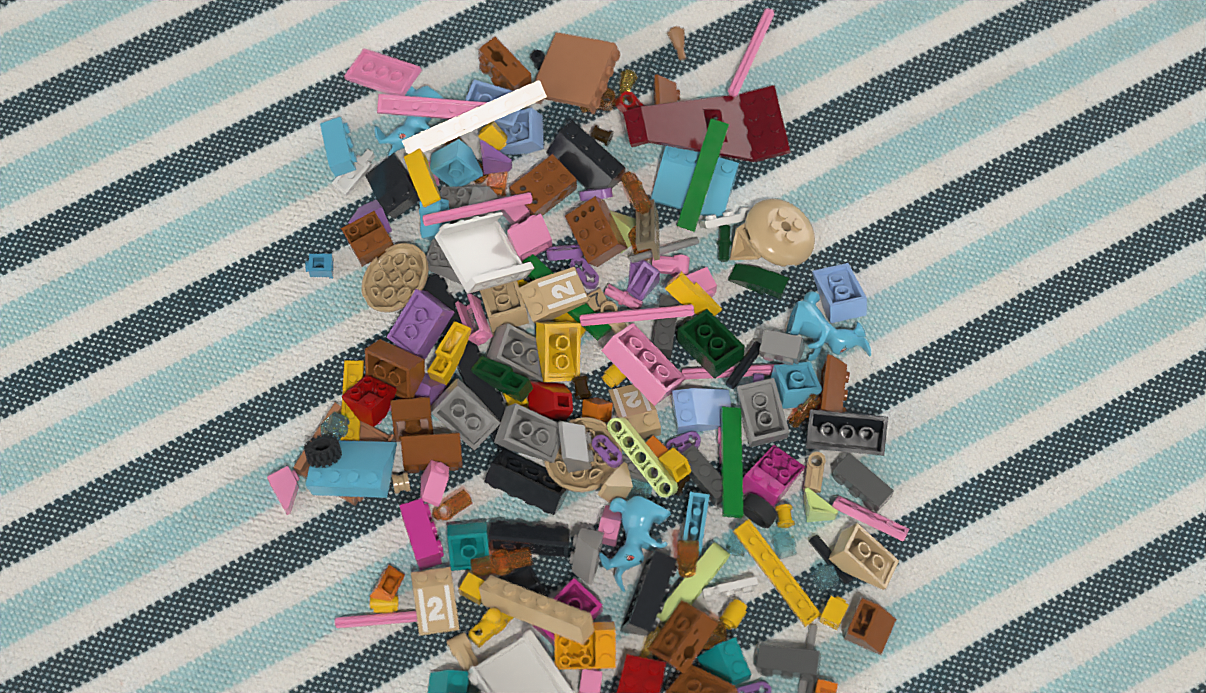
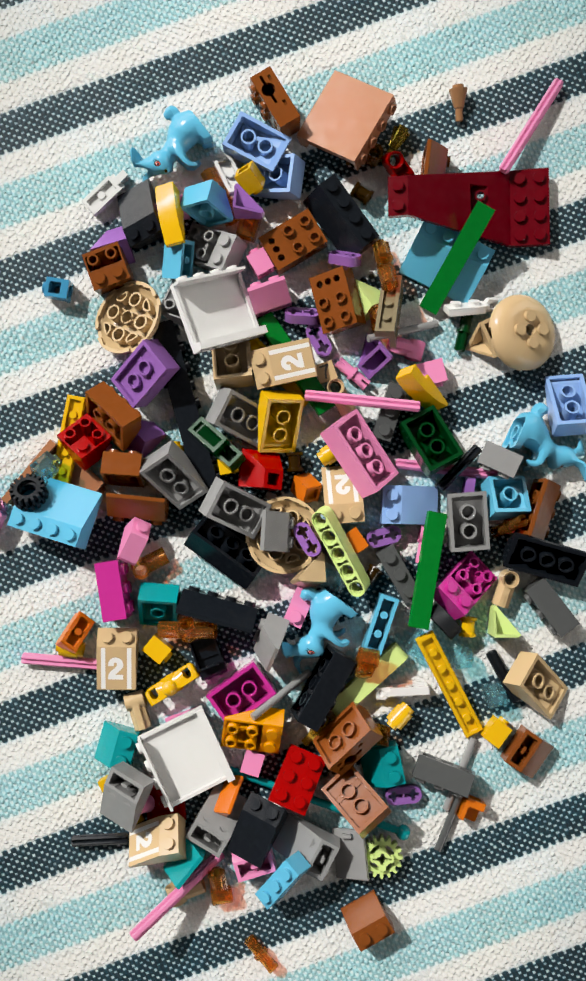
camera: 10 degrees right, 20 degrees up
(338, 146) = (92, 162): medium azure brick -> none
(382, 73) = (150, 87): bright pink tile -> none
(401, 482) = (104, 530): tan wheel -> none
(423, 106) = (192, 138): bright pink tile -> none
(449, 353) = (169, 408): yellow slope -> none
(474, 317) = (199, 377): bright pink window -> none
(475, 118) = (235, 157): tile -> none
(476, 209) = (220, 259): bright pink axle -> none
(537, 58) = (311, 96): black pin -> none
(537, 609) = (210, 694): tan brick -> none
(613, 603) = (281, 694): none -> light grey bar
(675, 464) = (371, 562): yellow brick -> none
(759, 280) = (490, 378): dark green slope -> none
(870, 518) = (550, 643): bright pink tile -> none

